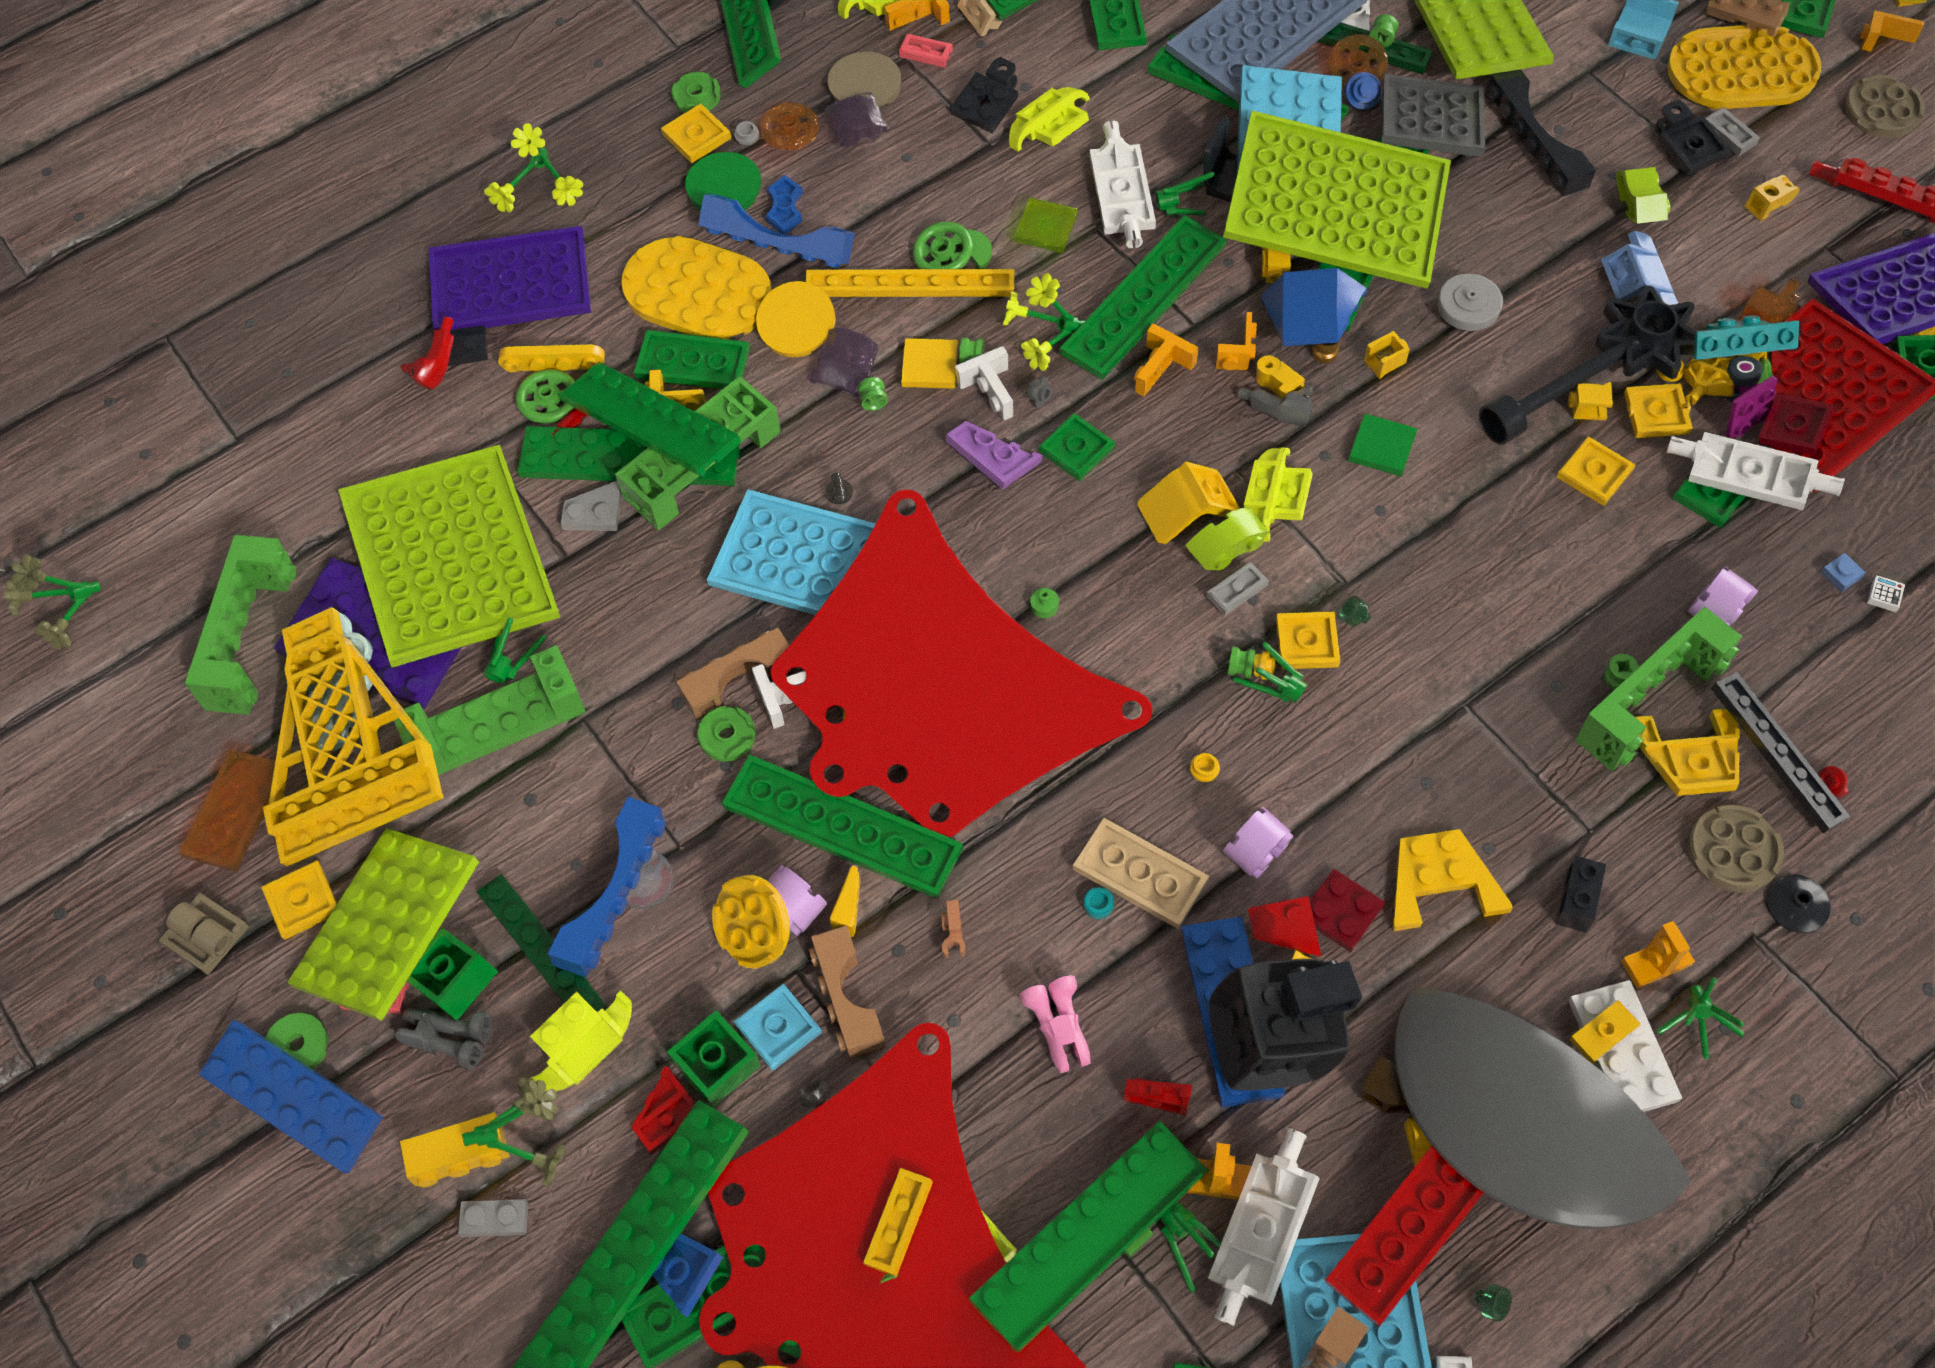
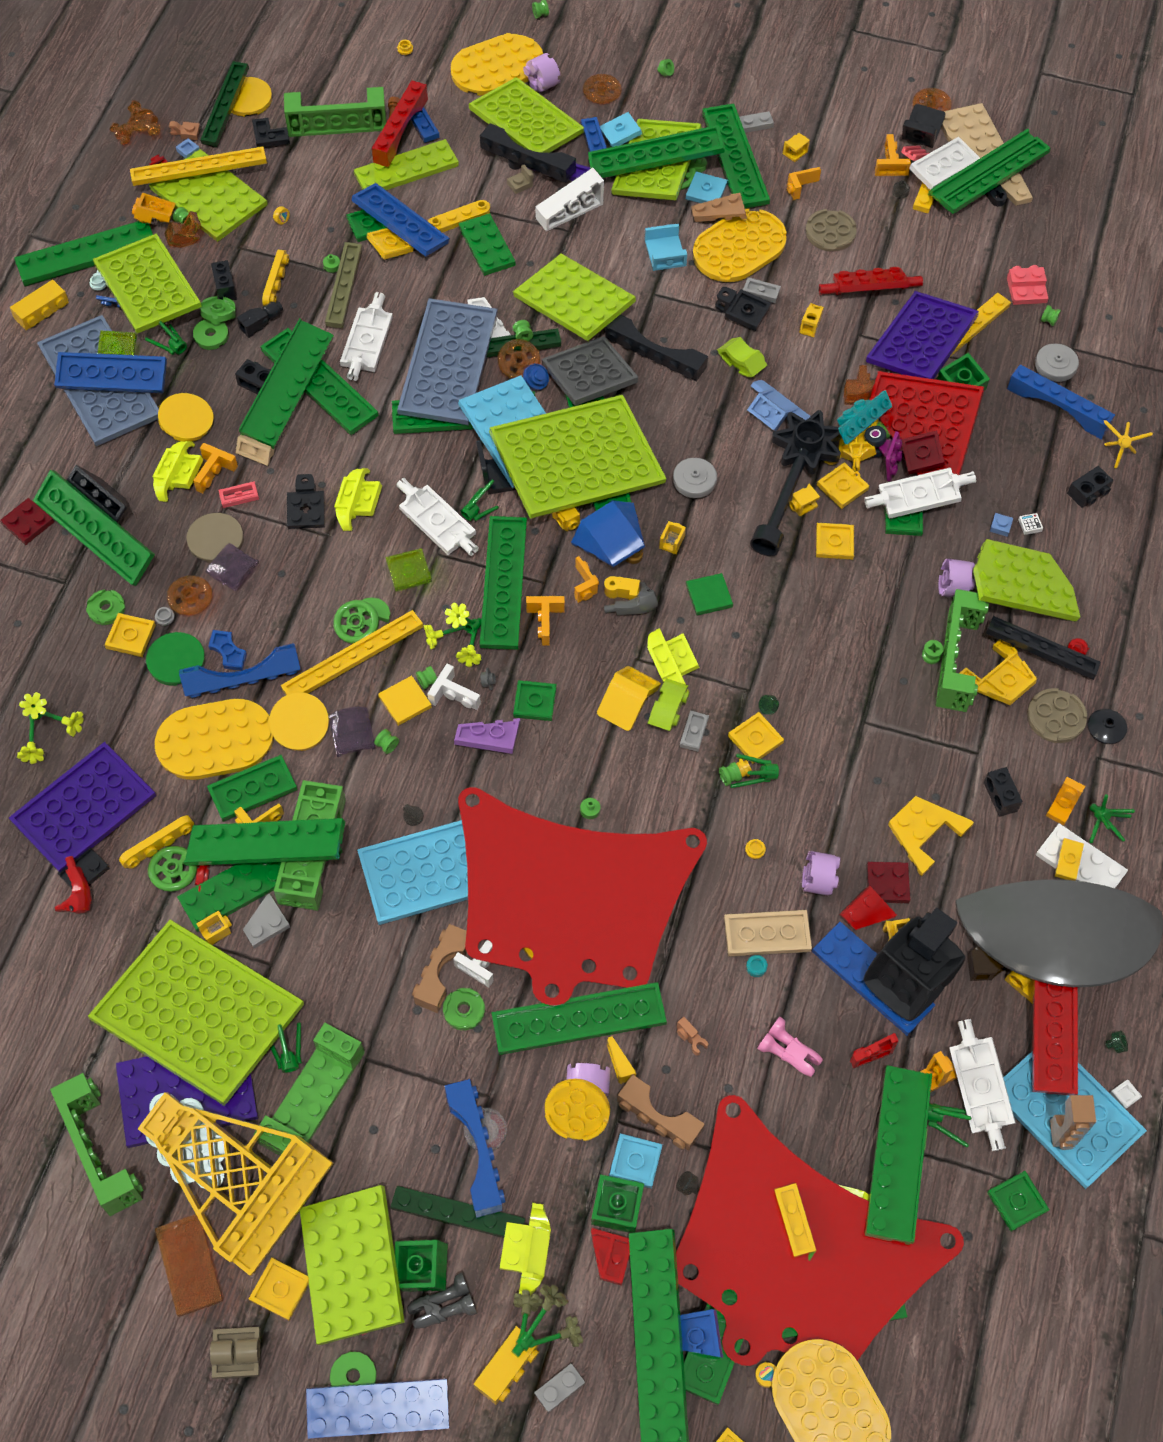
camera: 40 degrees left, 0 degrees up
(537, 481) = (214, 927): none -> yellow window
(1815, 653) = (1024, 581): none -> lime plate

